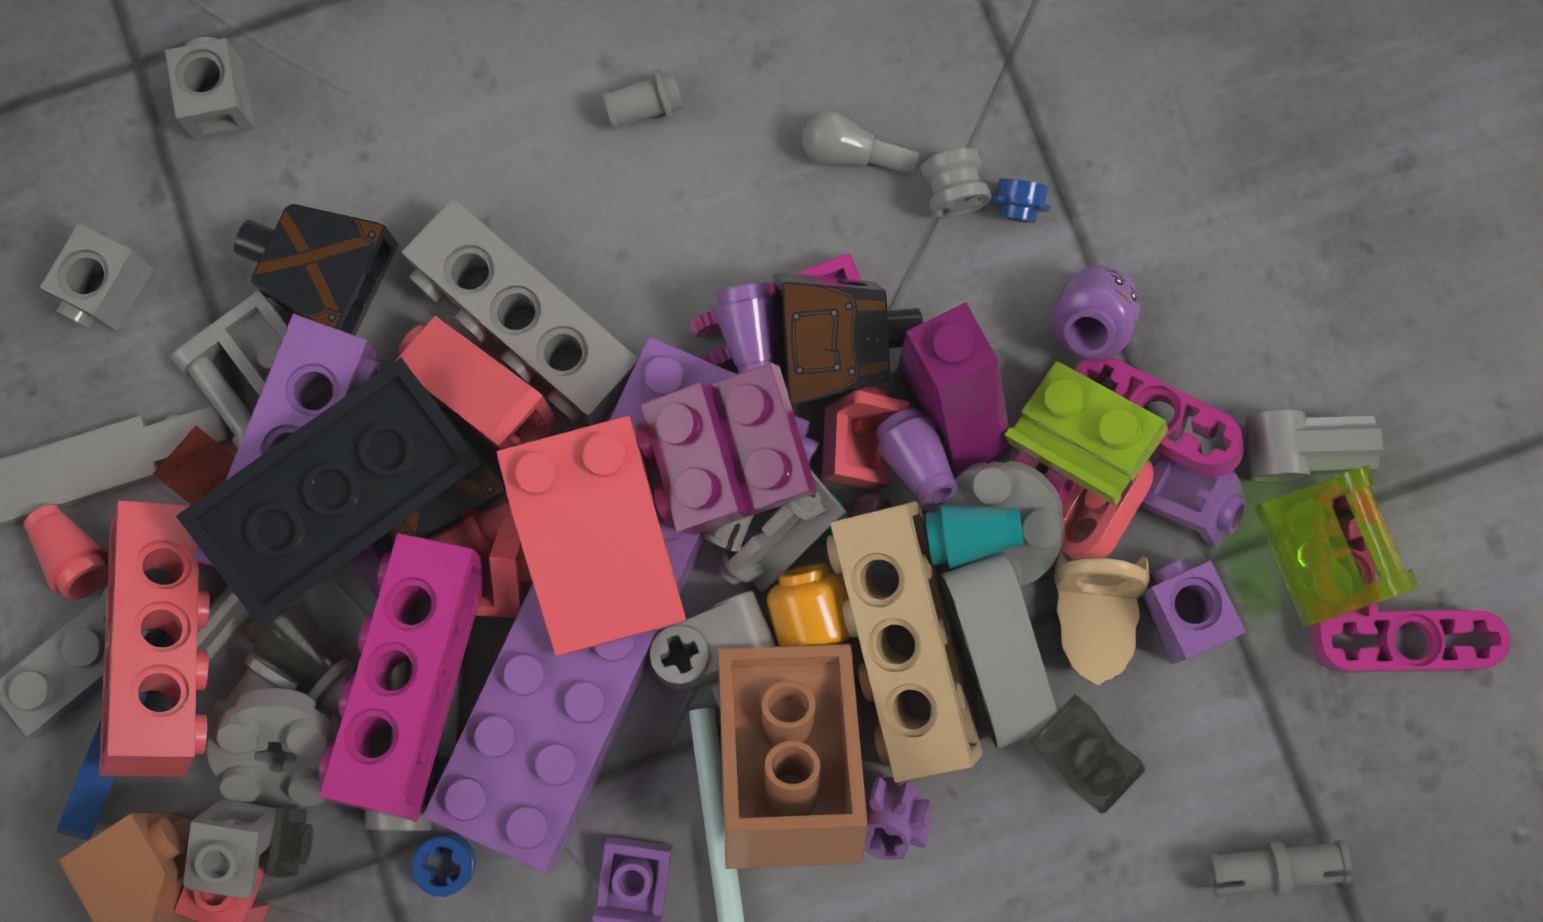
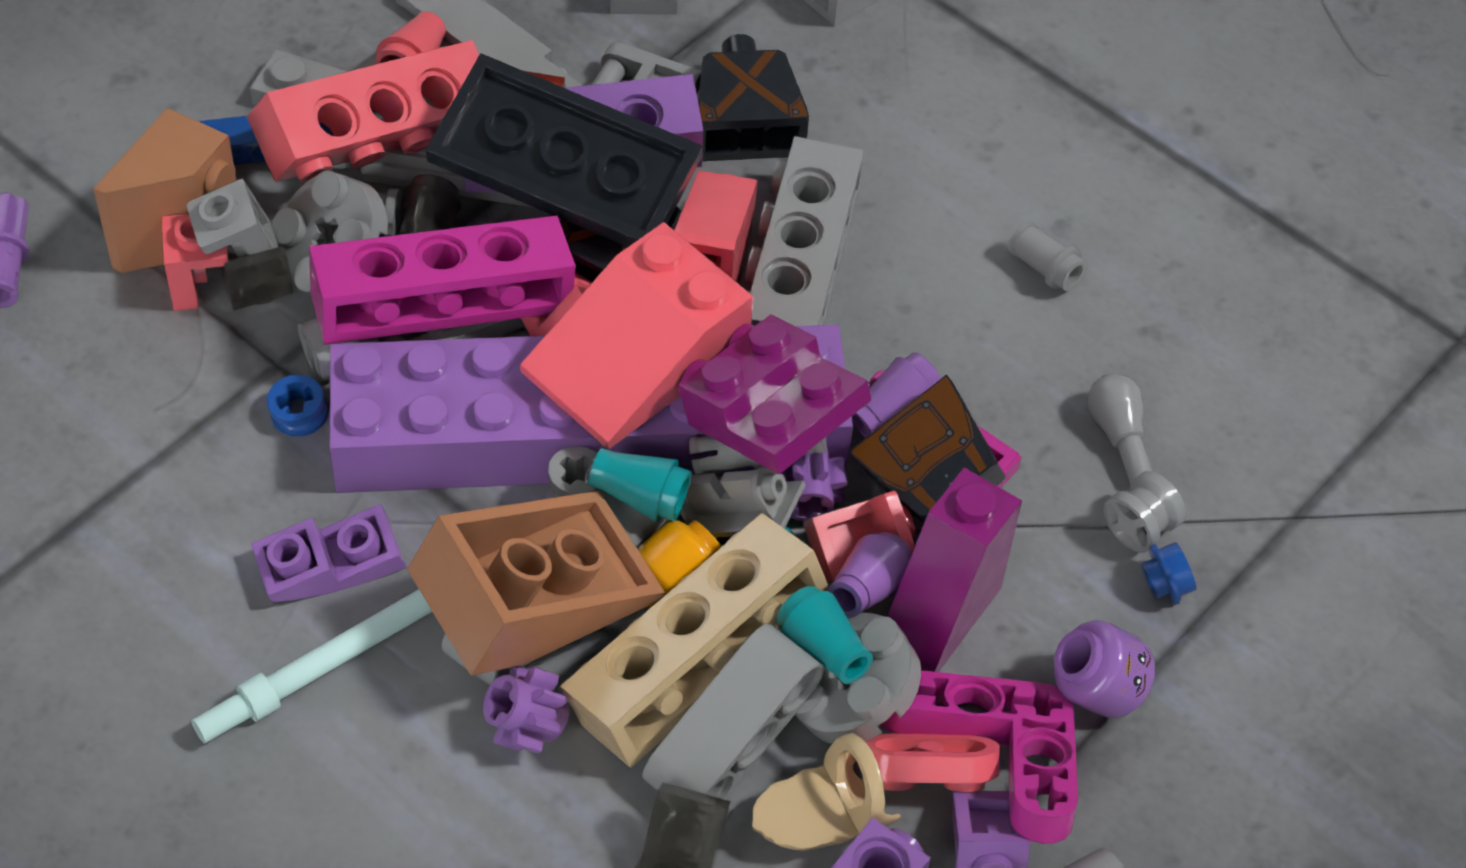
camera: 55 degrees right, 25 degrees down
(734, 607) = (643, 482): none -> teal cone
(1087, 432) = (984, 702): lime plate -> none

